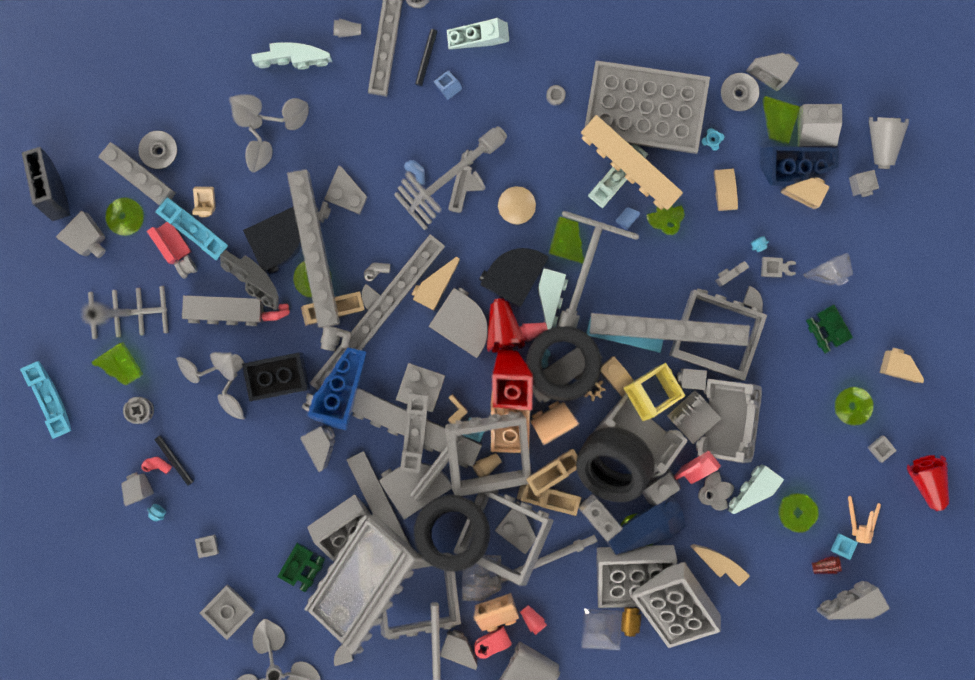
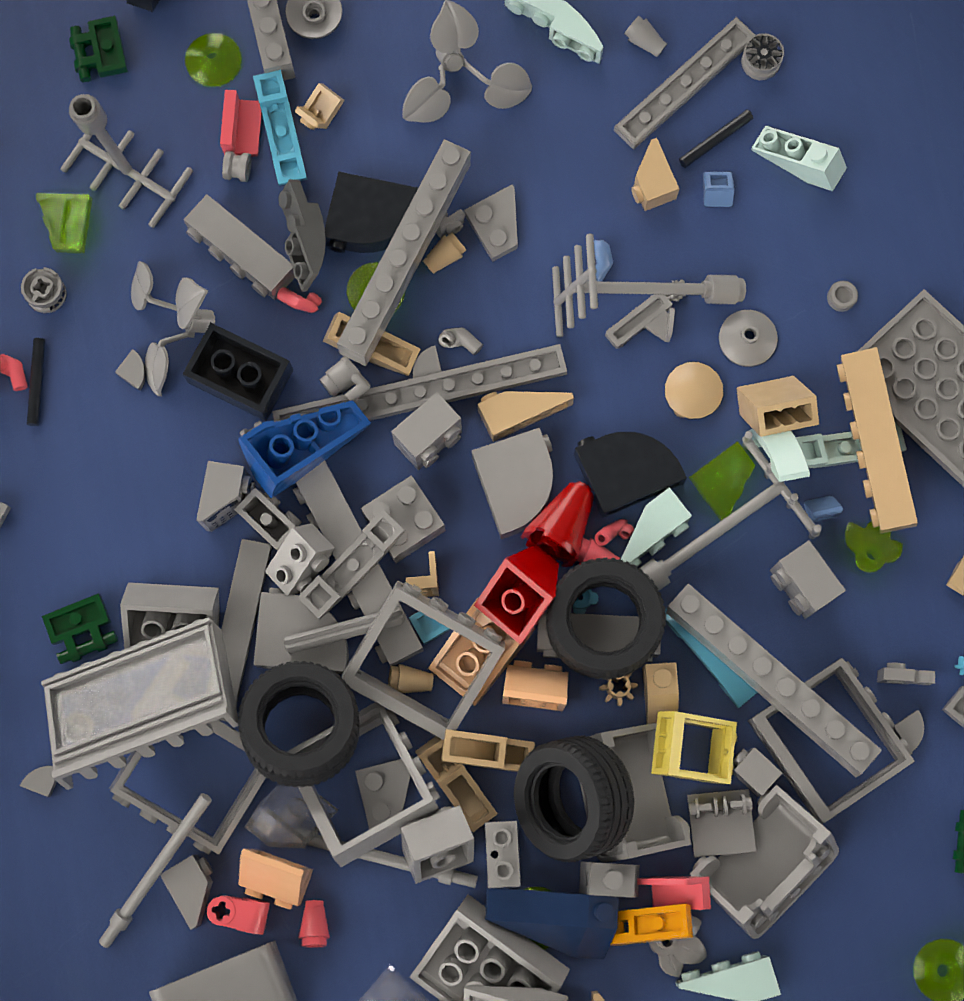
camera: 40 degrees right, 10 degrees down
(61, 253) = (107, 48): none -> dark green plate
(83, 236) = (148, 43): light grey torso -> none
(219, 416) = (132, 370): none -> light grey tile
(332, 230) = (444, 253): none -> tan cone
(354, 441) = (266, 517): none -> light grey brick
(385, 449) = (299, 559): none -> light grey brick
(398, 333) = (428, 432): none -> light grey brick
(411, 106) = (654, 179): none -> tan slope
(521, 164) = (748, 351): none -> light grey dish
(529, 314) = (610, 531): none -> coral arm
(564, 536) = (437, 843): none -> light grey brick
(567, 183) = (777, 406): none -> tan brick
(588, 209) = (784, 454): none -> light aqua slope
(648, 264) = (806, 580): none -> light grey brick
(698, 493) = (654, 924): none -> light orange plate

